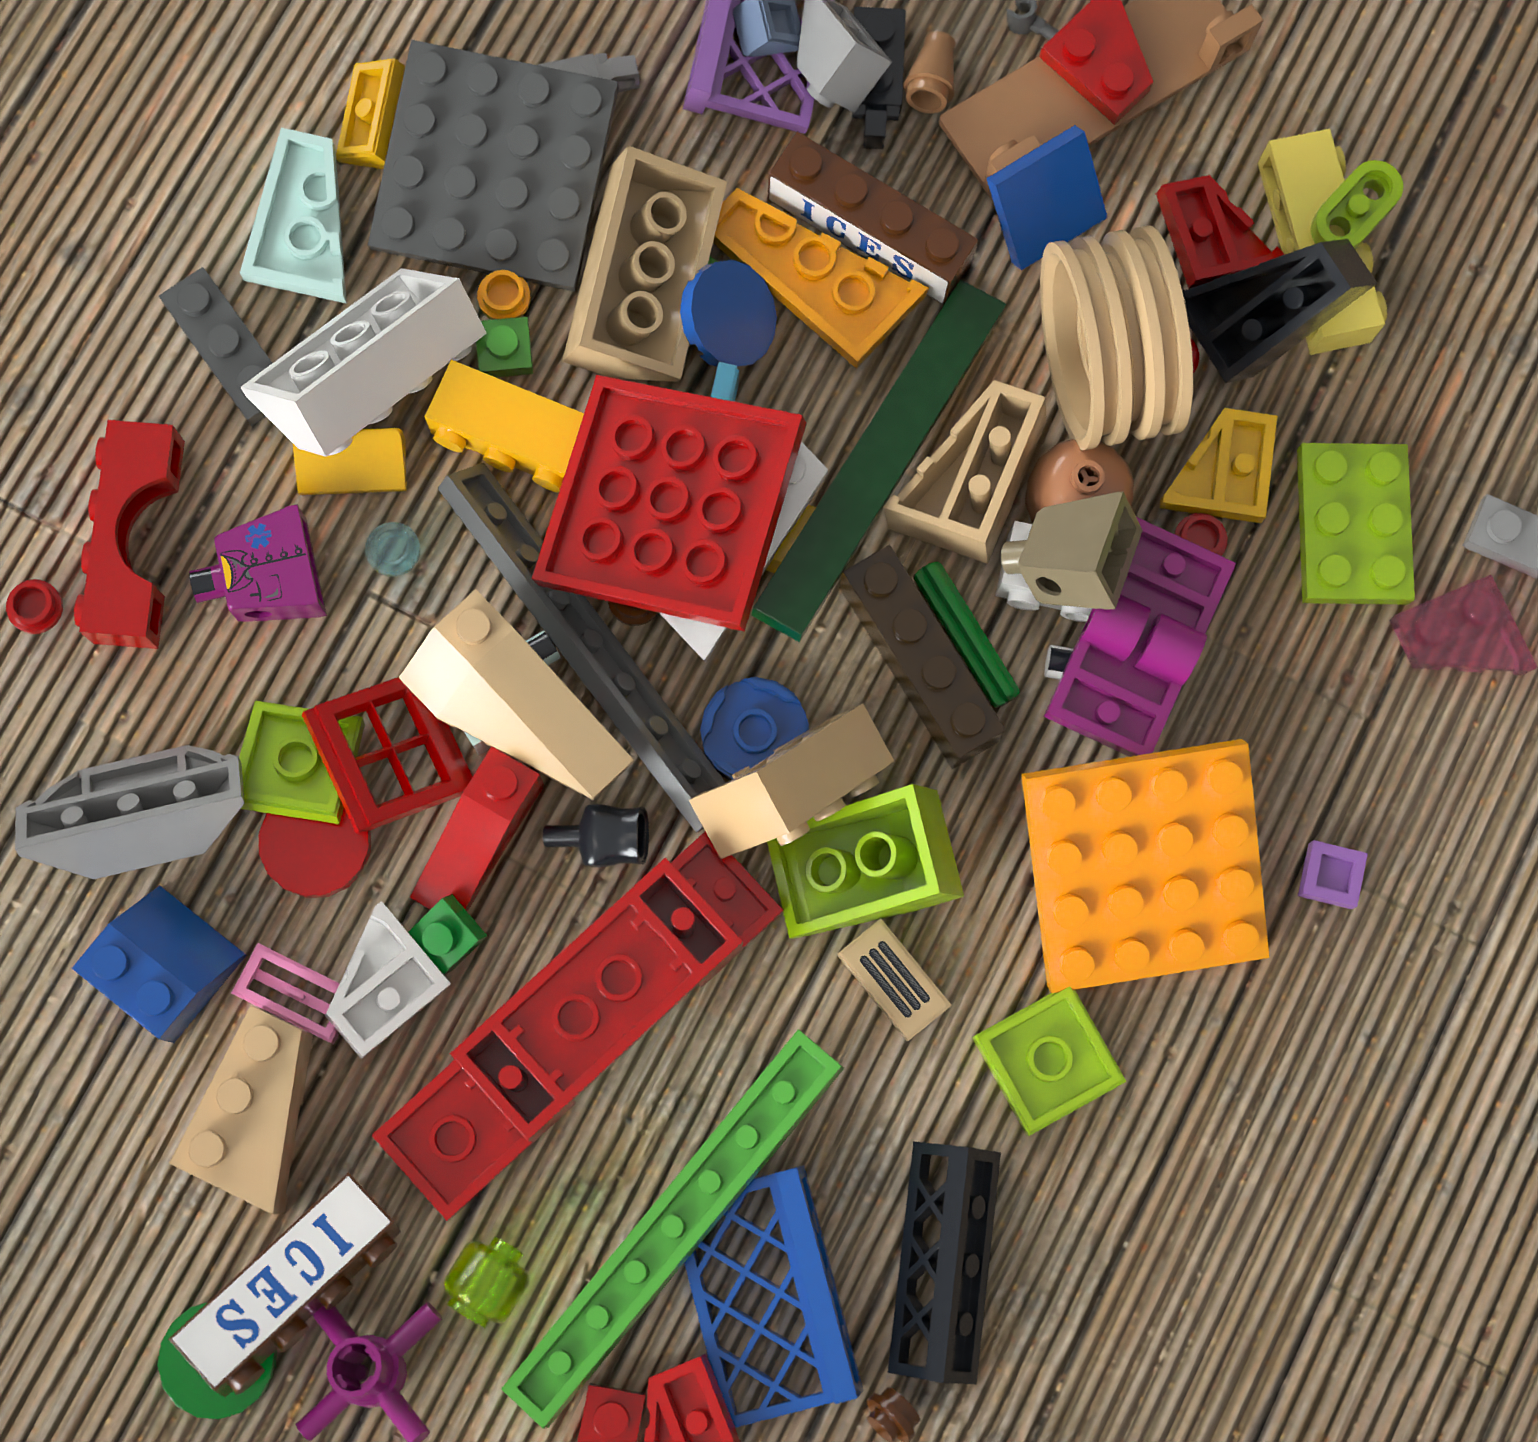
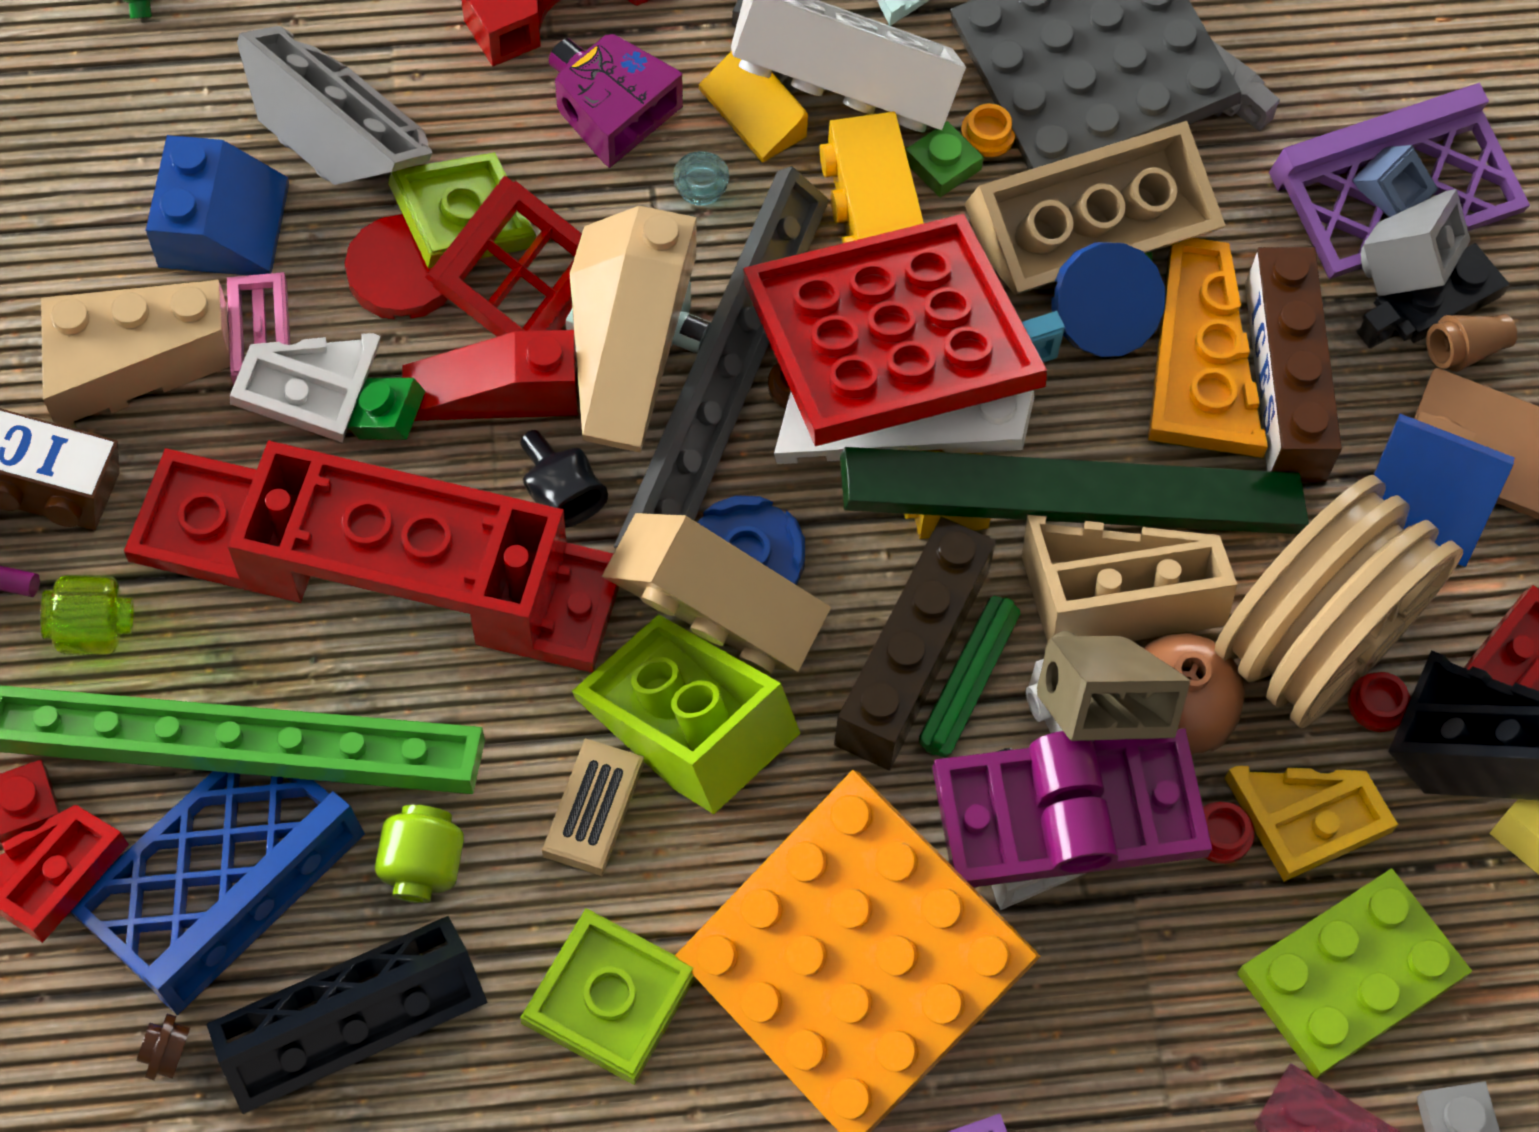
camera: 60 degrees right, 15 degrees down
(858, 1135) = (419, 853): none -> lime head

